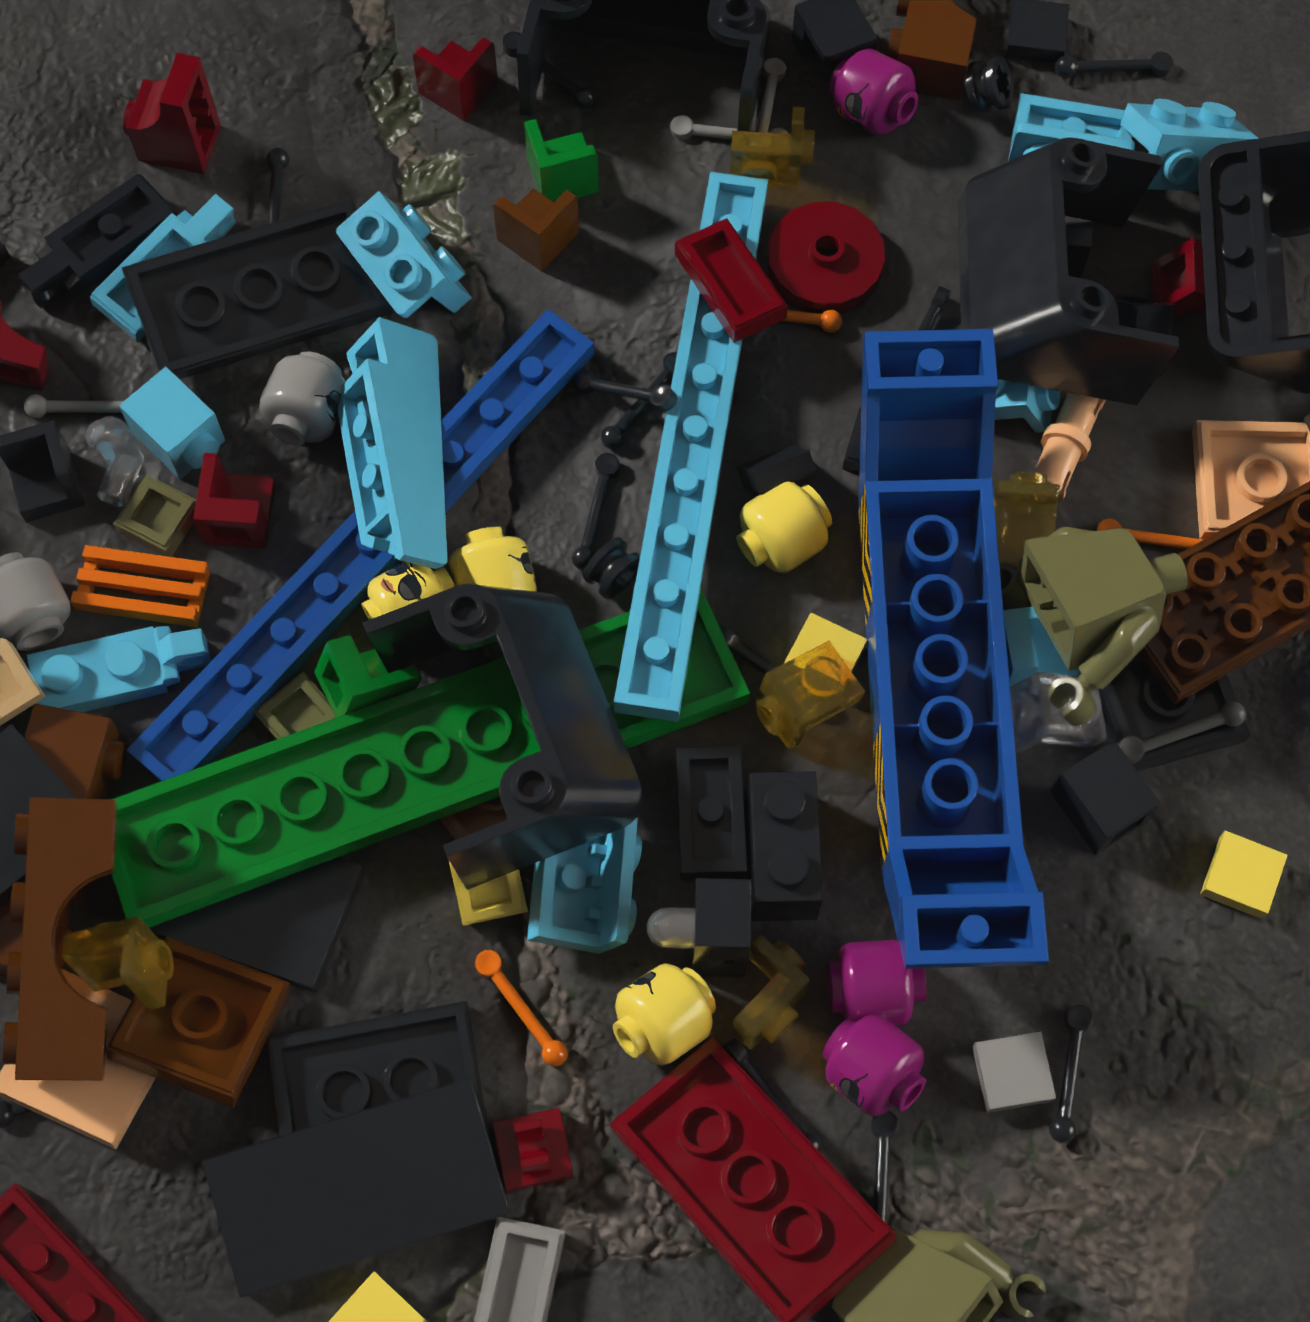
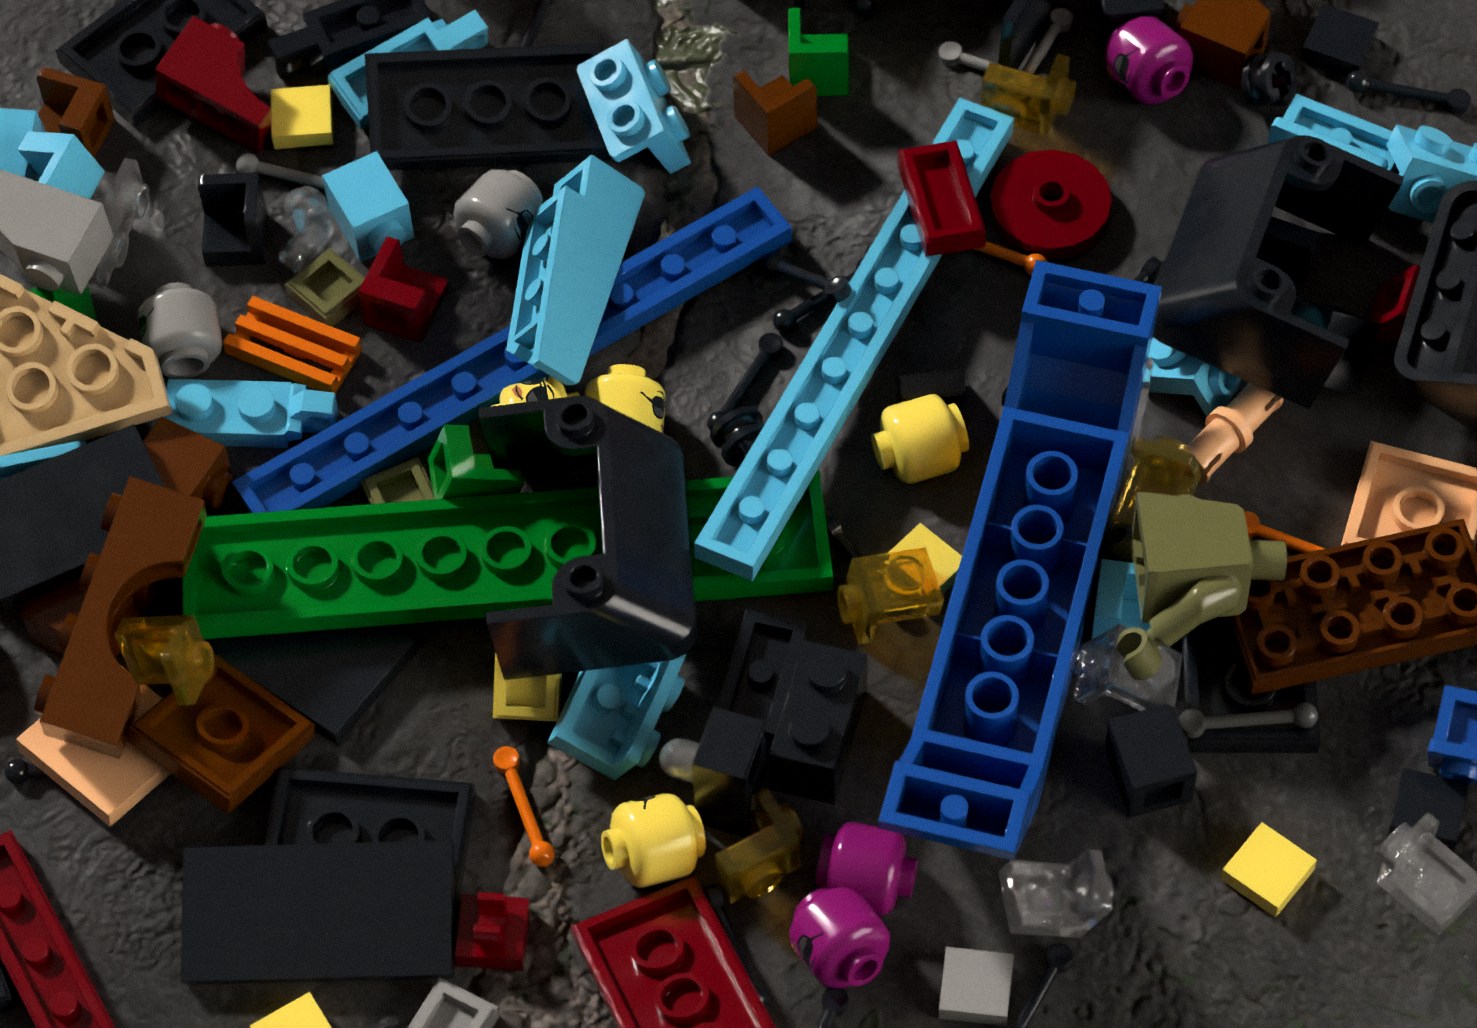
camera: 20 degrees right, 10 degrees down
(75, 343) = (302, 117): none -> light yellow tile
(1079, 960) = (1056, 896): none -> clear bracket

